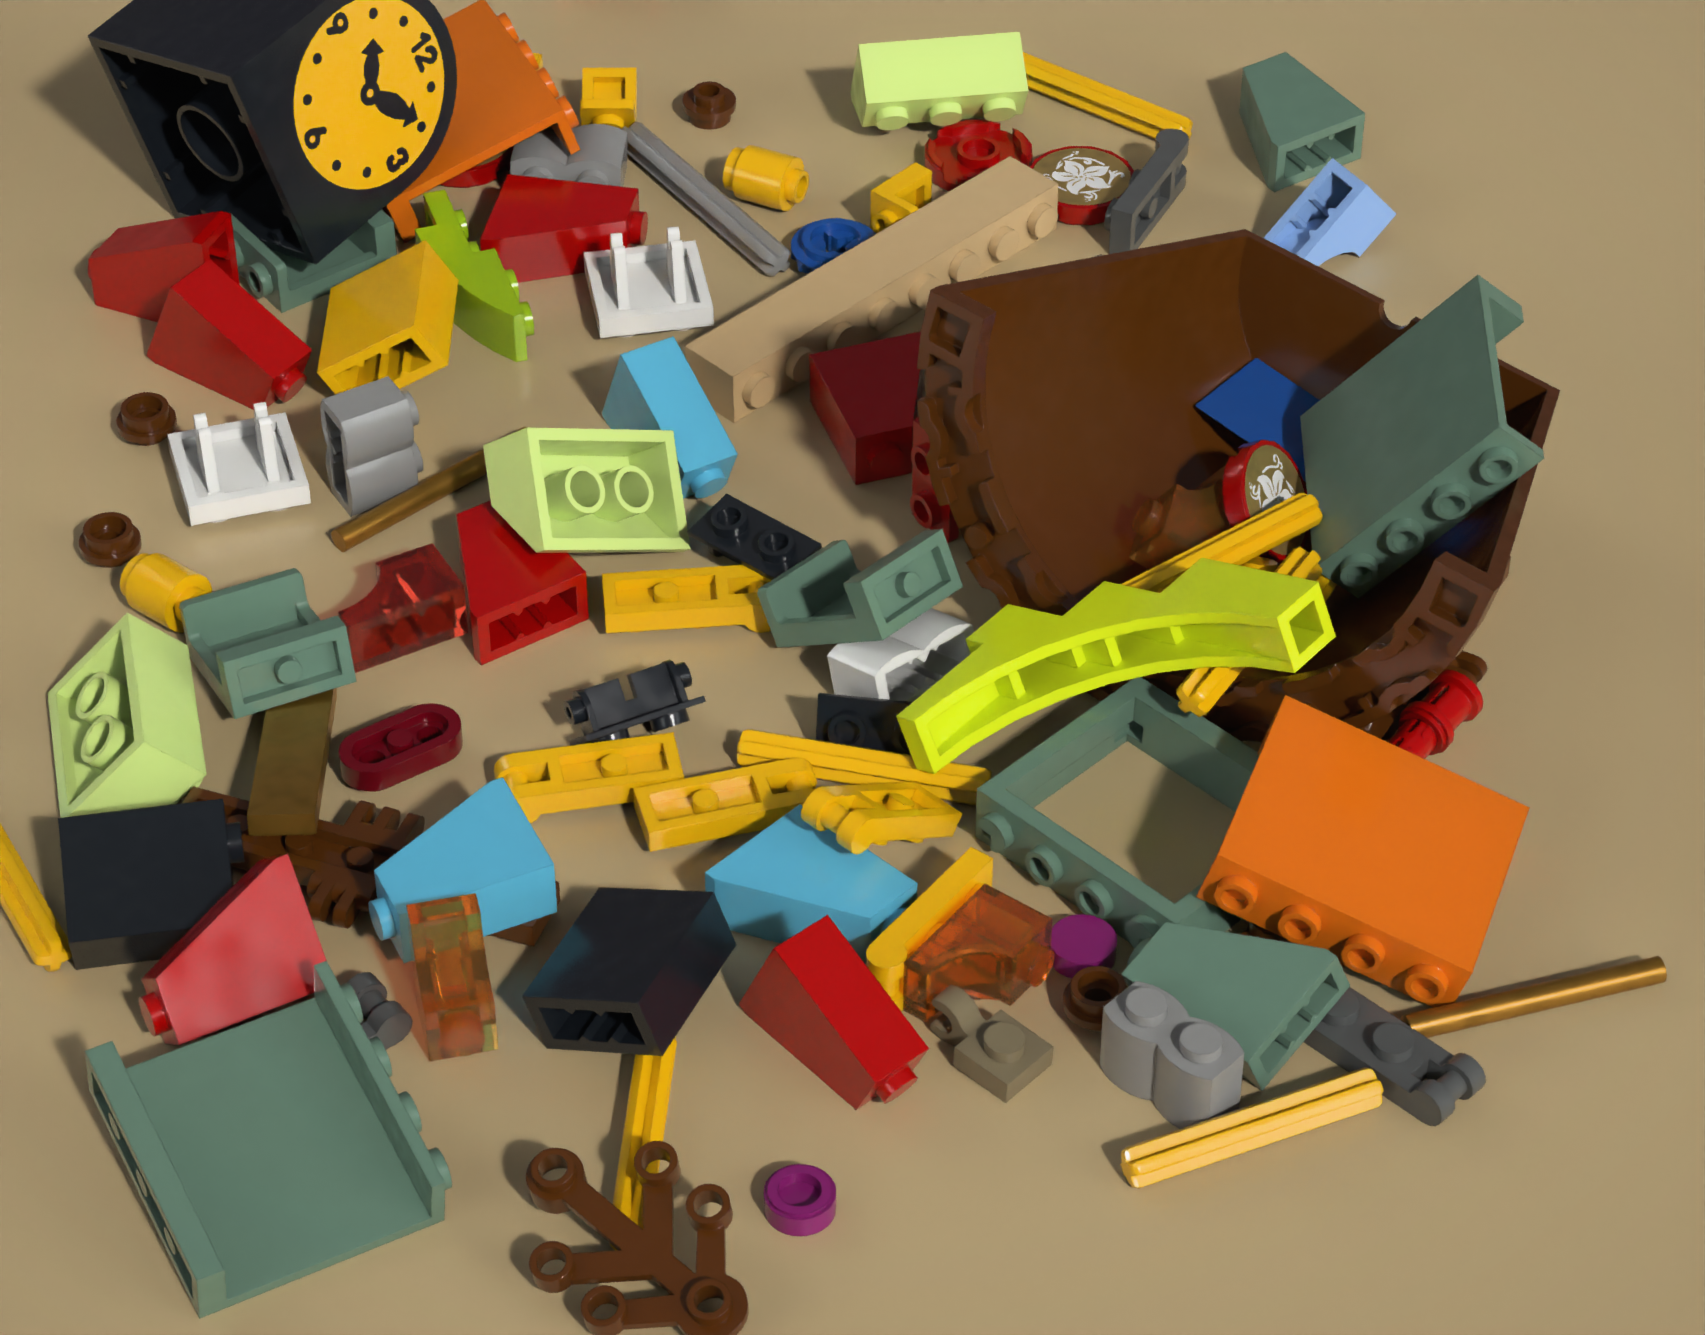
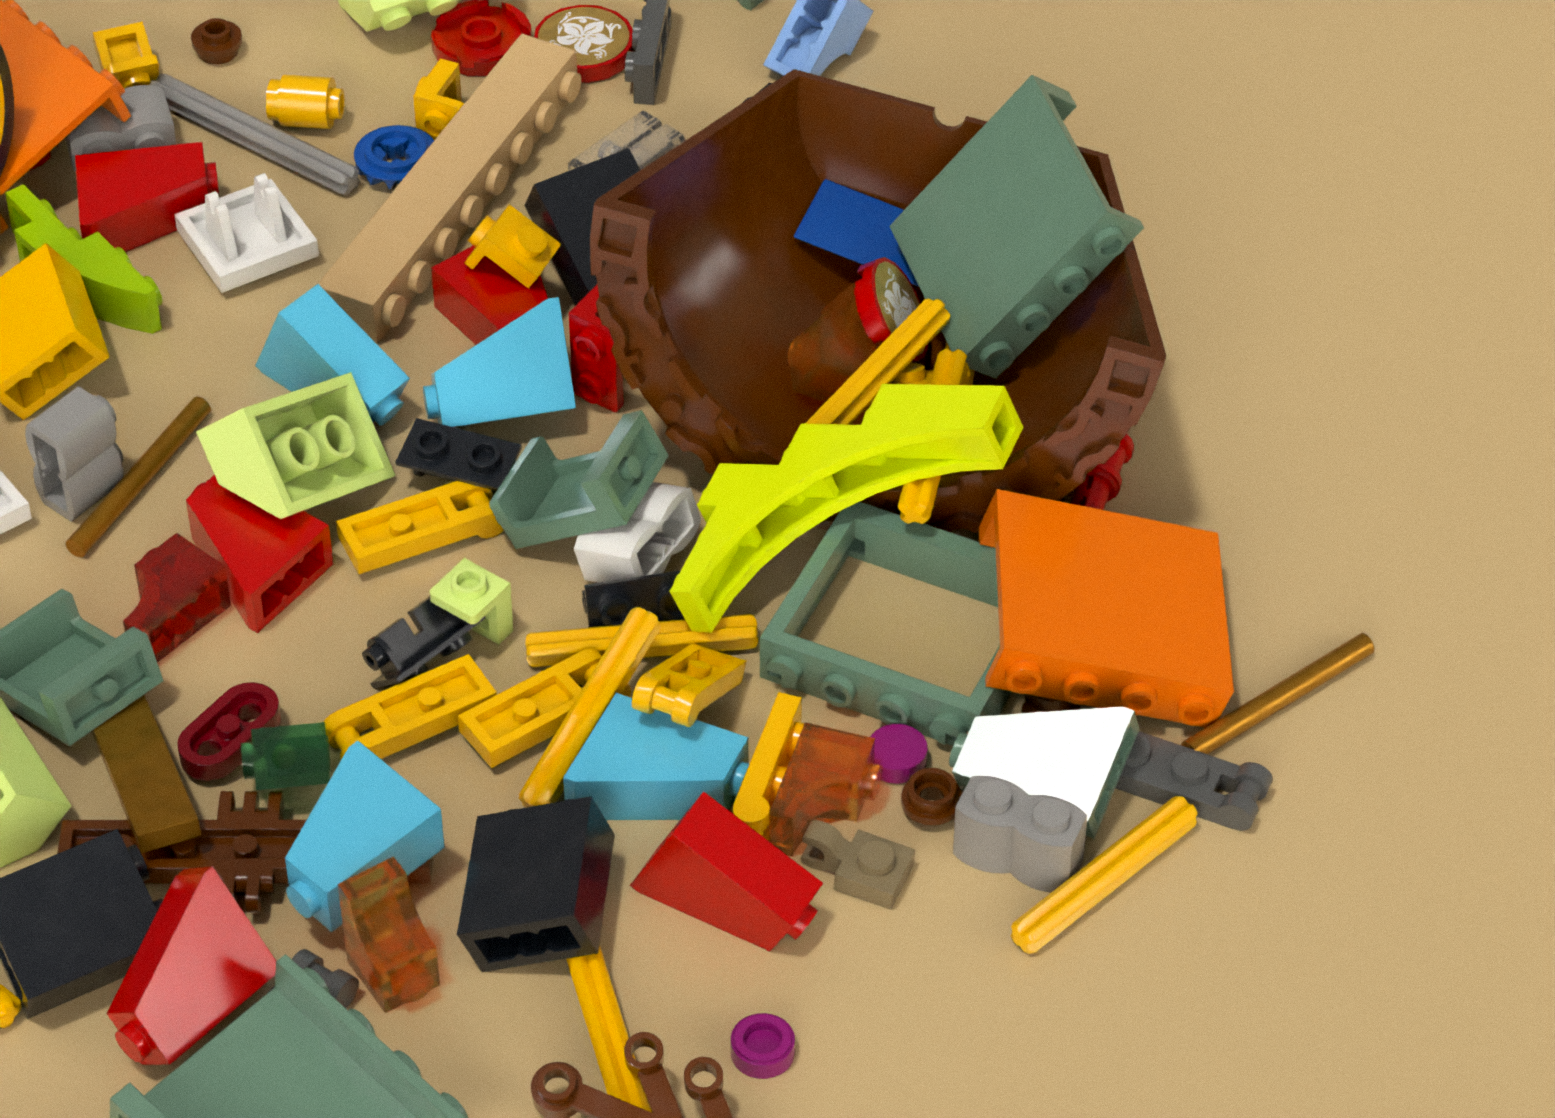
camera: 20 degrees left, 5 degrees up
(437, 778) = (287, 756): none -> clear green brick
(703, 670) = (475, 593): none -> yellowish green bracket
(823, 768) = (608, 678): none -> yellow axle
(837, 472) = (506, 375): none -> medium azure slope
(890, 346) = (513, 245): none -> yellow bracket

